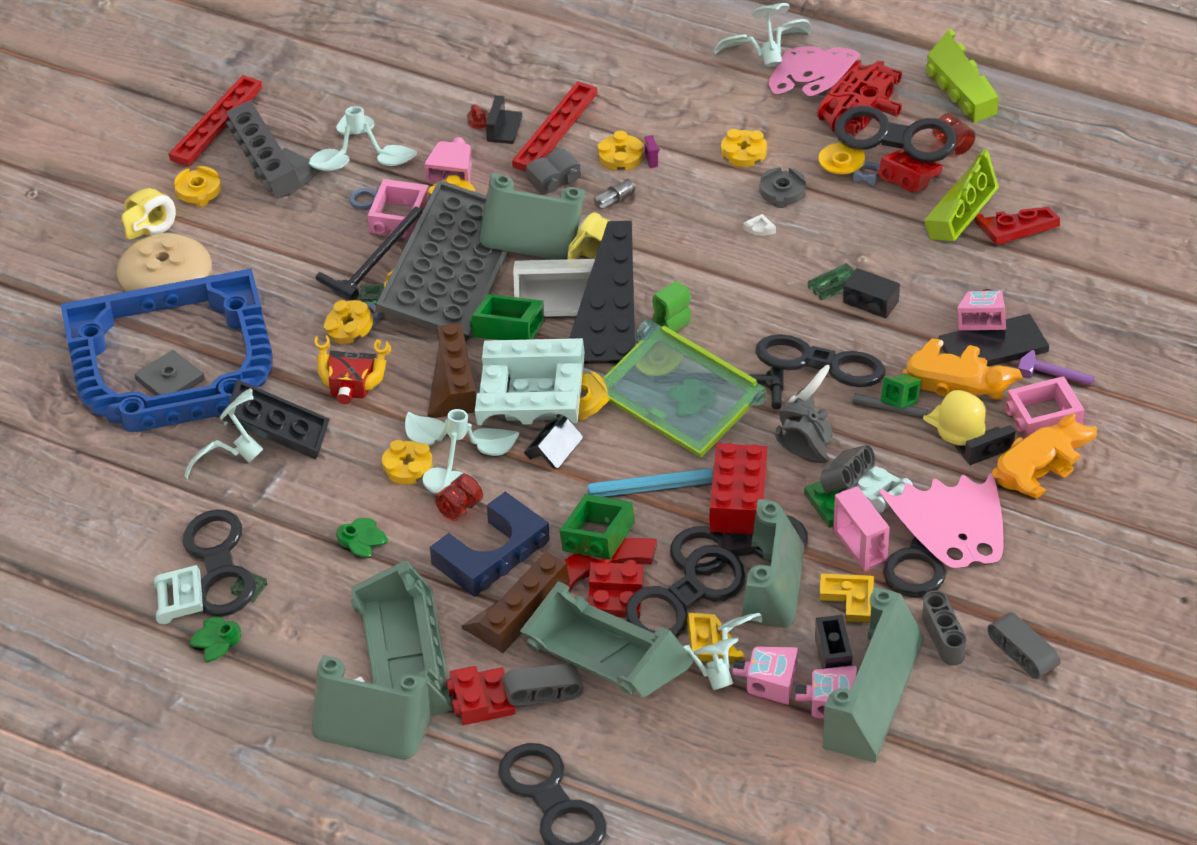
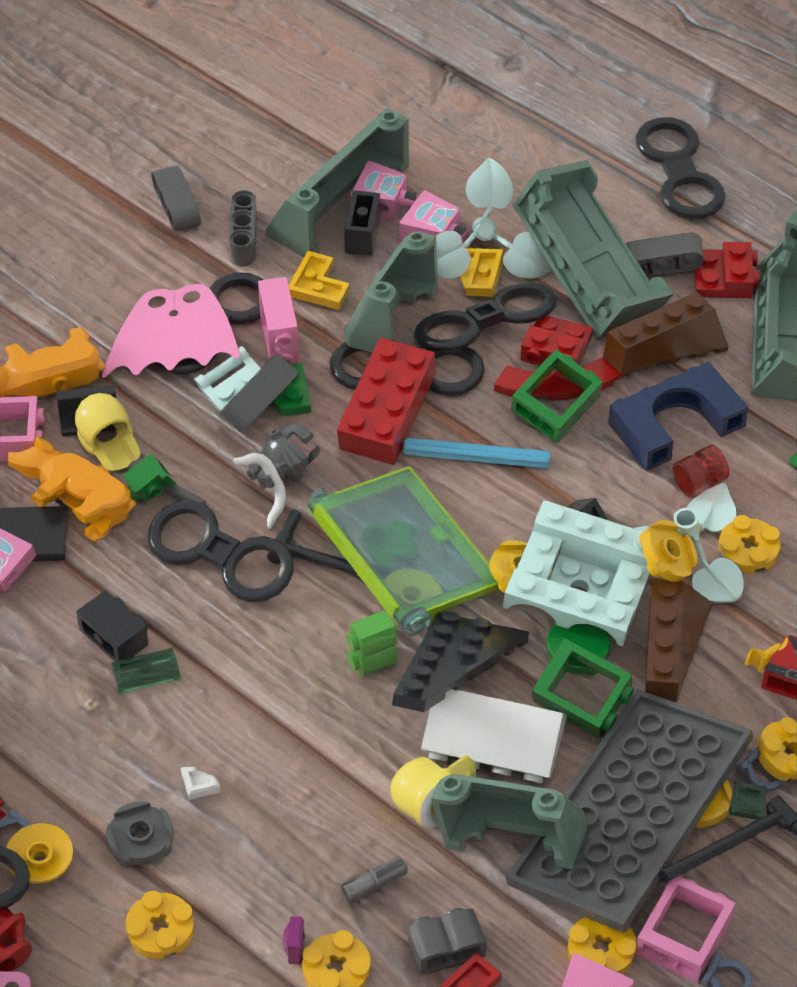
camera: 165 degrees left, 5 degrees up
(476, 392) = (656, 544): none -> yellow plate

